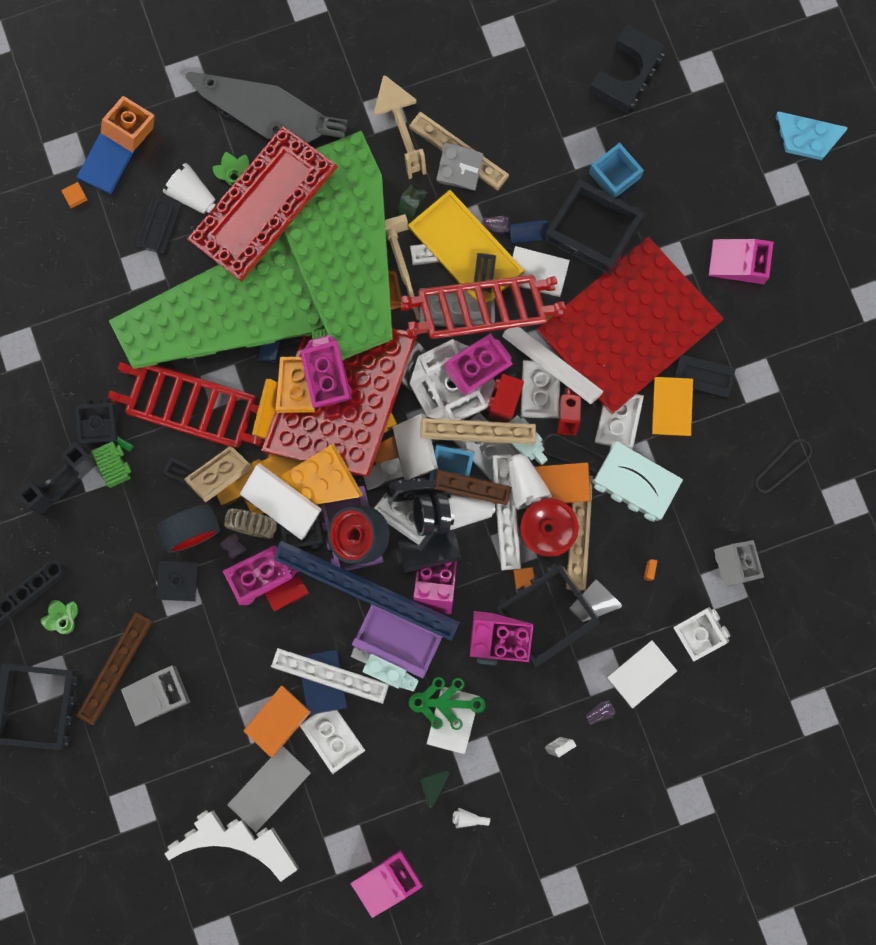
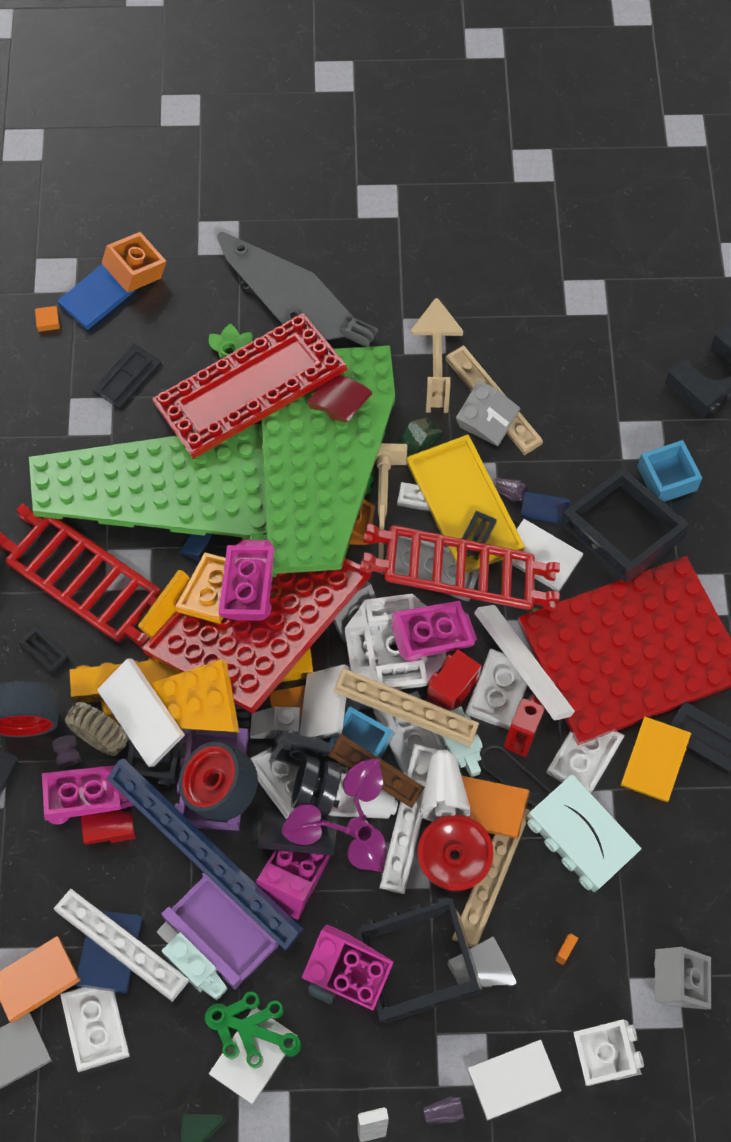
camera: 20 degrees right, 15 degrees down
(190, 190) = (172, 345): white cone -> none
(218, 473) = (81, 660): tan tile -> none
(340, 193) = (340, 398): none -> dark red slope
(483, 542) = (368, 848): none -> magenta plant
(523, 577) = (402, 902): orange tile -> none

